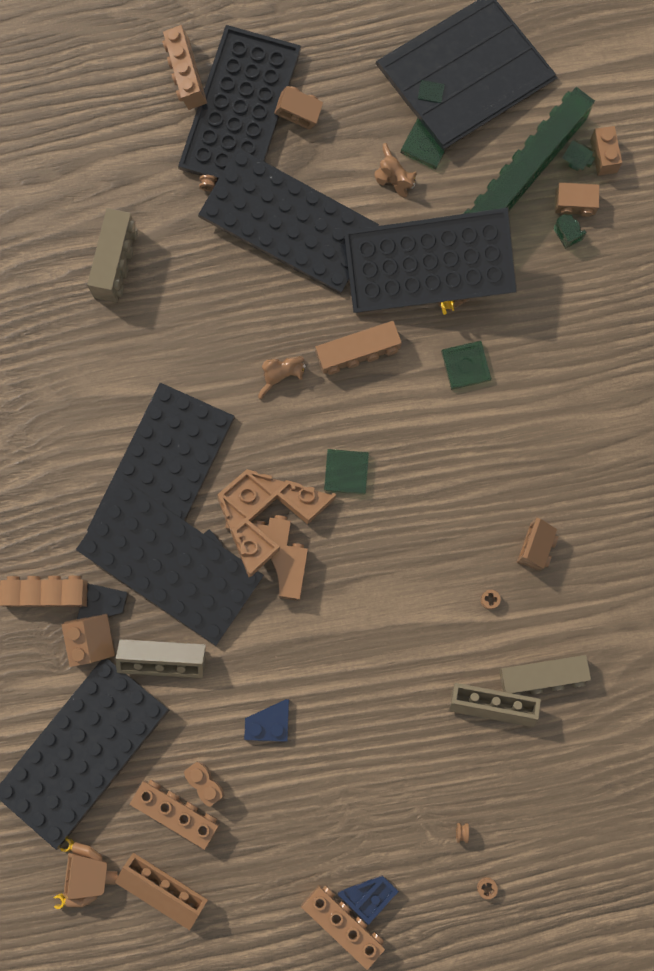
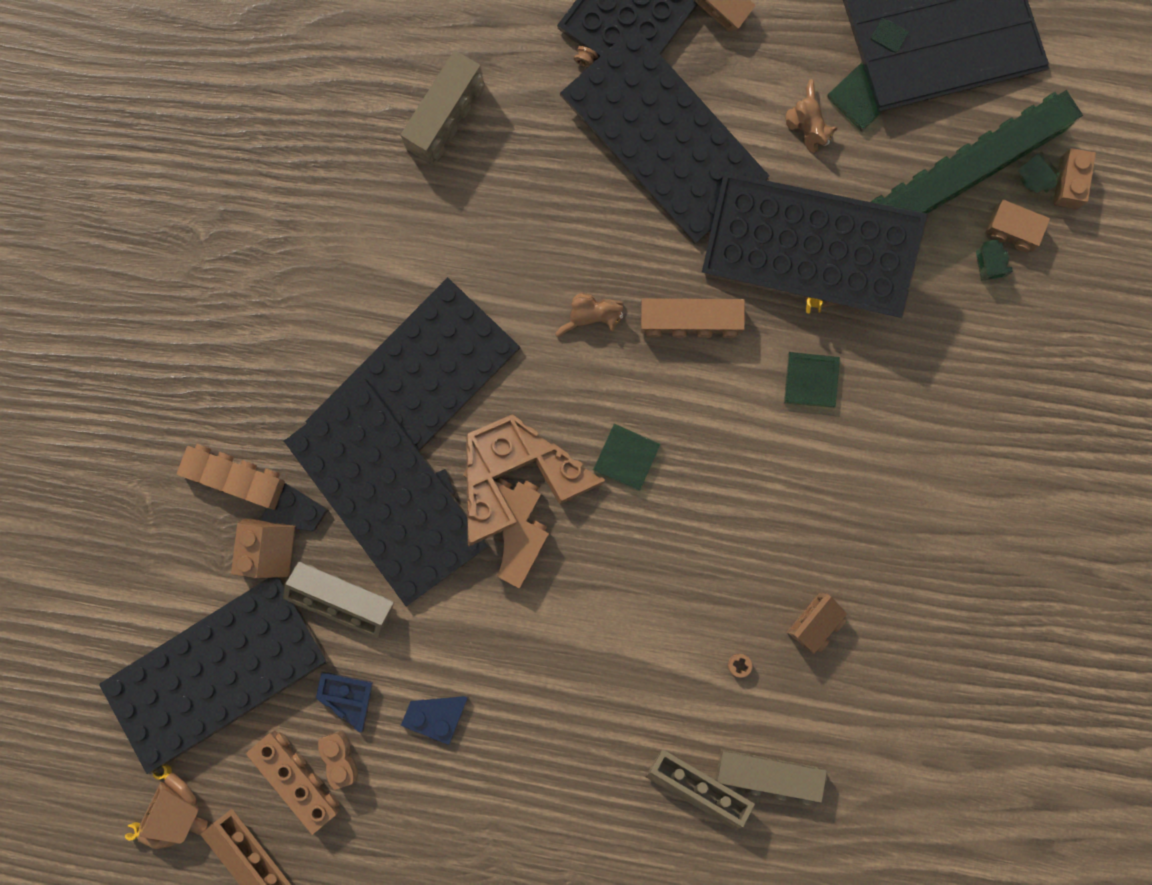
camera: 25 degrees right, 5 degrees up
(193, 733) = (346, 697): none -> dark blue wing

